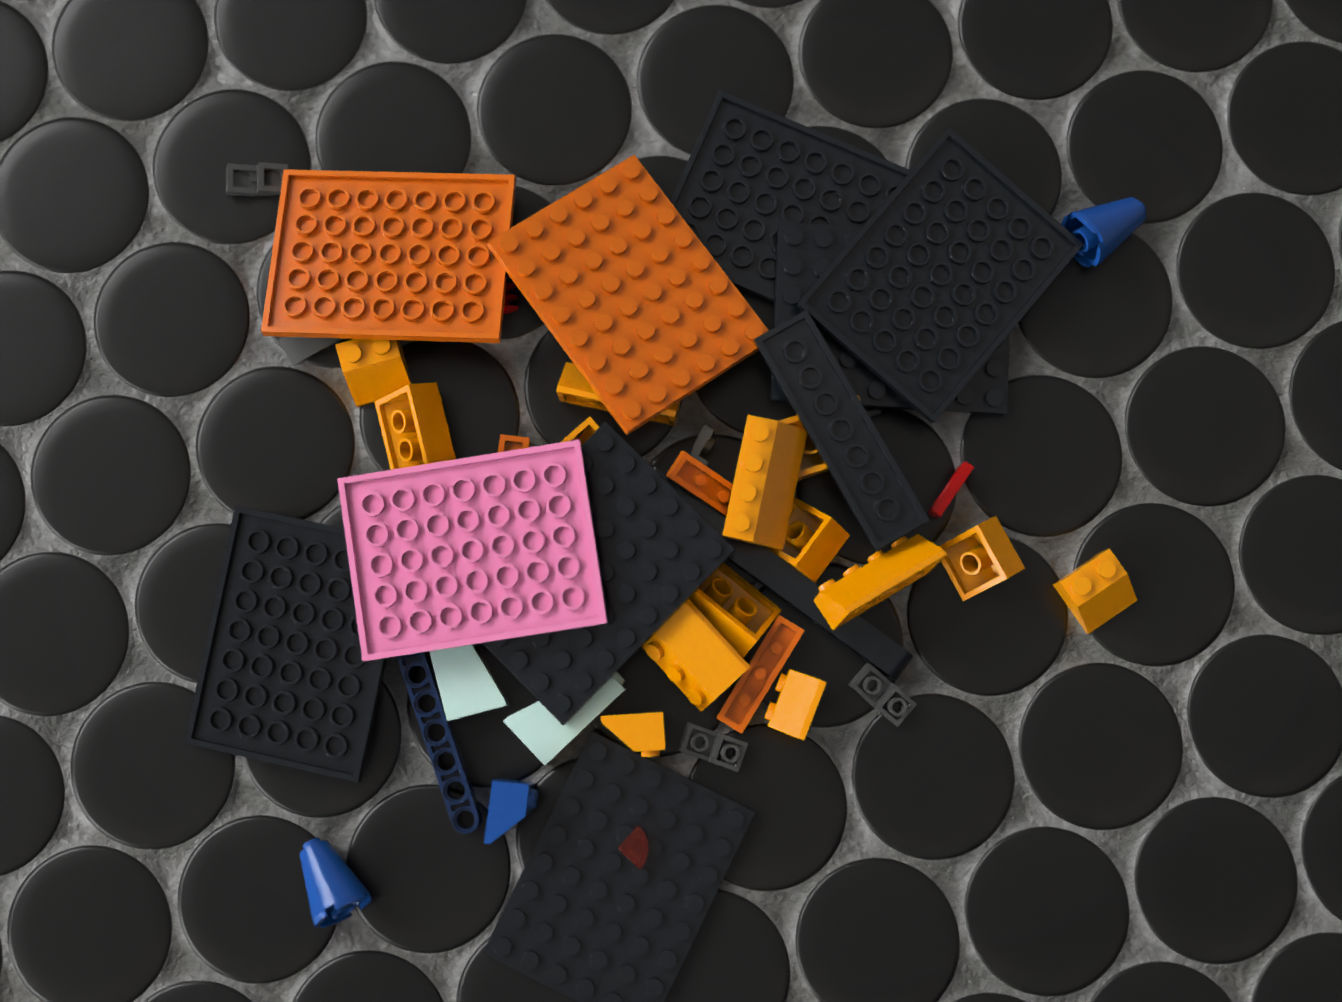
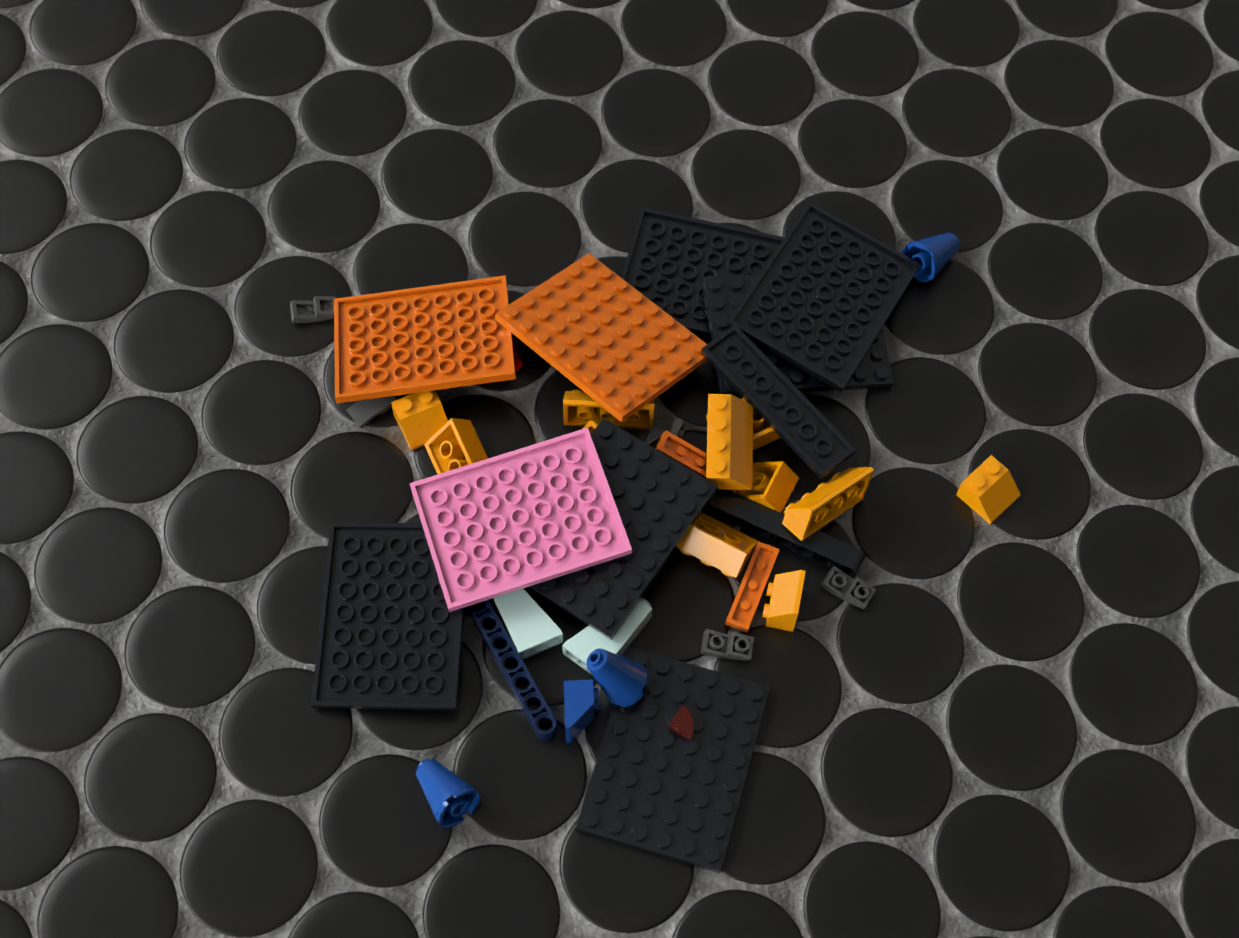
camera: 15 degrees left, 20 degrees down
(564, 779) = (618, 676): none -> blue cone
(639, 731) = (667, 635): light orange slope -> none
(695, 656) = (701, 575): light orange slope -> none
(950, 489) = (865, 438): red tile -> none
(980, 558) = (898, 481): light orange slope -> none

